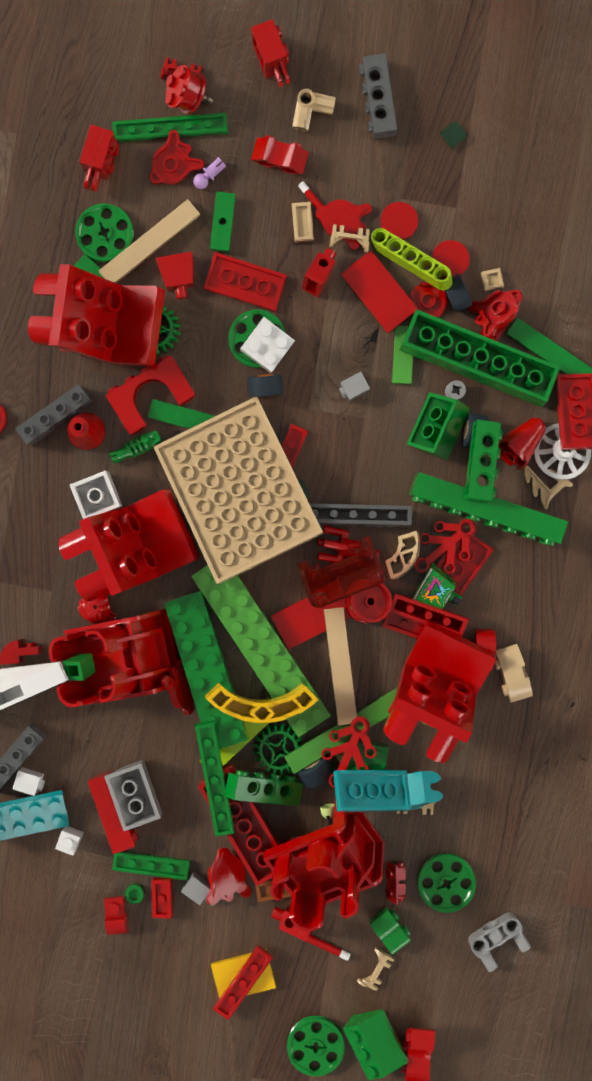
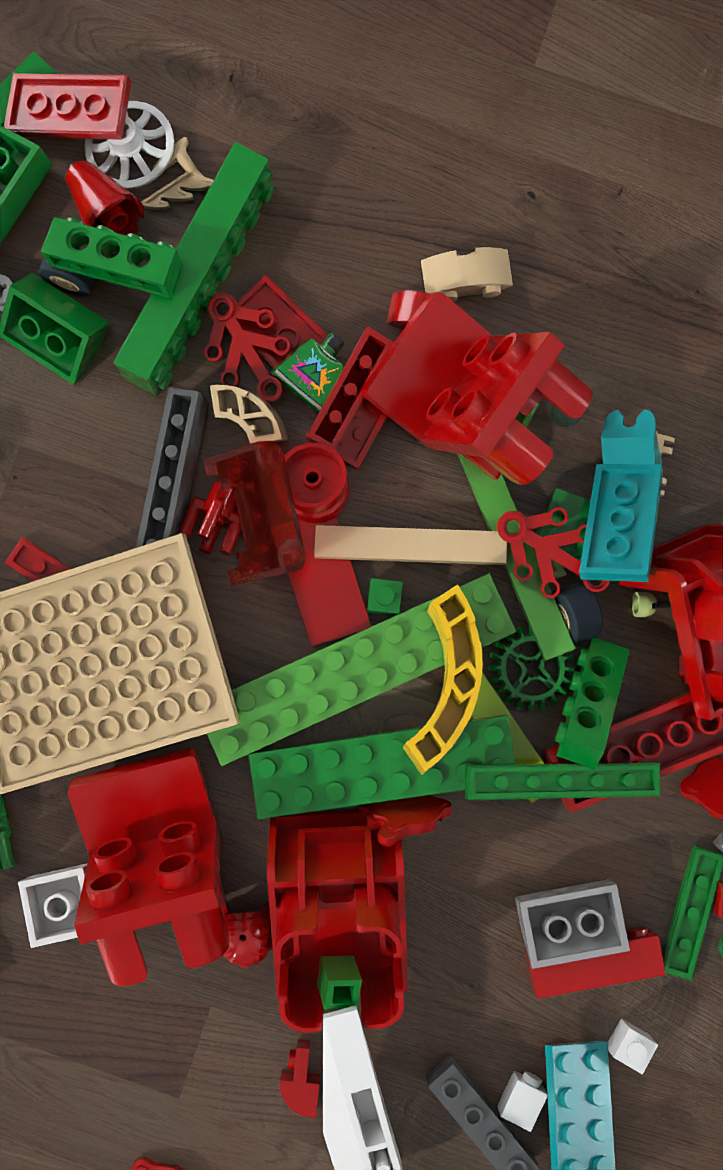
camera: 85 degrees left, 5 degrees down
(307, 655) = (384, 597): none -> green brick

